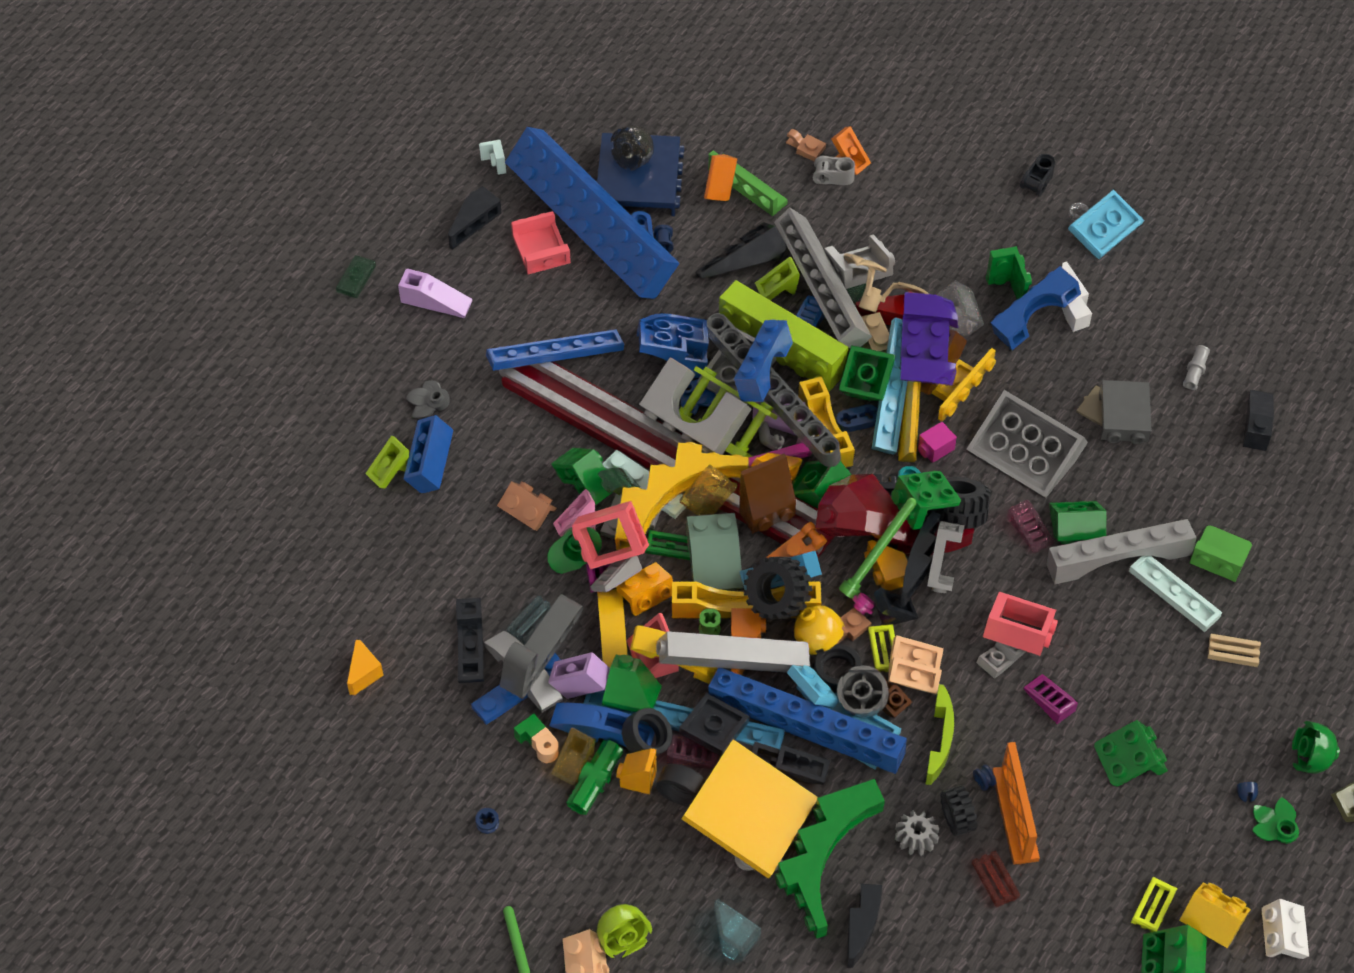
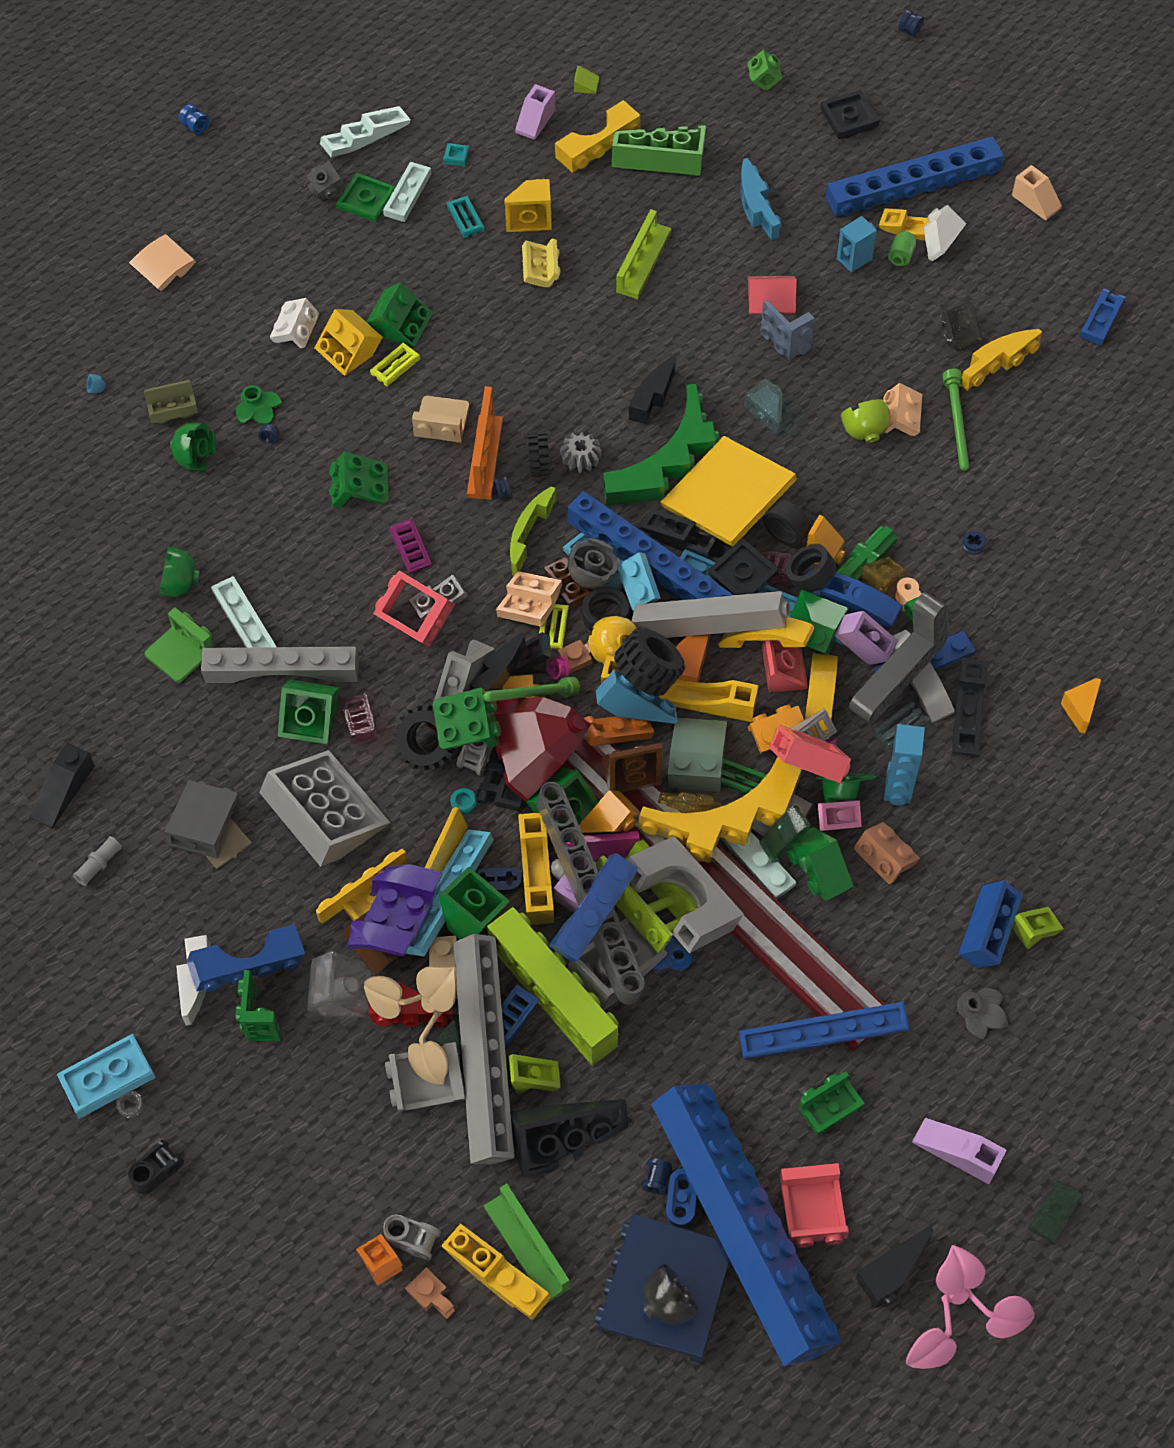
camera: 165 degrees left, 5 degrees up
(426, 207) = (955, 1279): none -> bright pink plant
(493, 151) = (849, 1360): light aqua bracket -> none
(523, 541) = (904, 764): none -> dark azure arch
(540, 308) = (830, 1103): none -> green bracket
(675, 337) = (681, 1014): blue slope -> none
(709, 622) = (724, 673): bright green bush -> none
(720, 177) = (562, 1240): orange slope -> none
(765, 163) = (495, 1272): none -> yellow slope
(936, 442) = (421, 827): dark pink brick -> none
(1005, 875) = (521, 394): clear red tile -> none
(1077, 841) = (441, 419): none -> tan bracket
(1235, 646) = (220, 550): tan tile -> none
(1259, 614) = (178, 573): none -> green cylinder

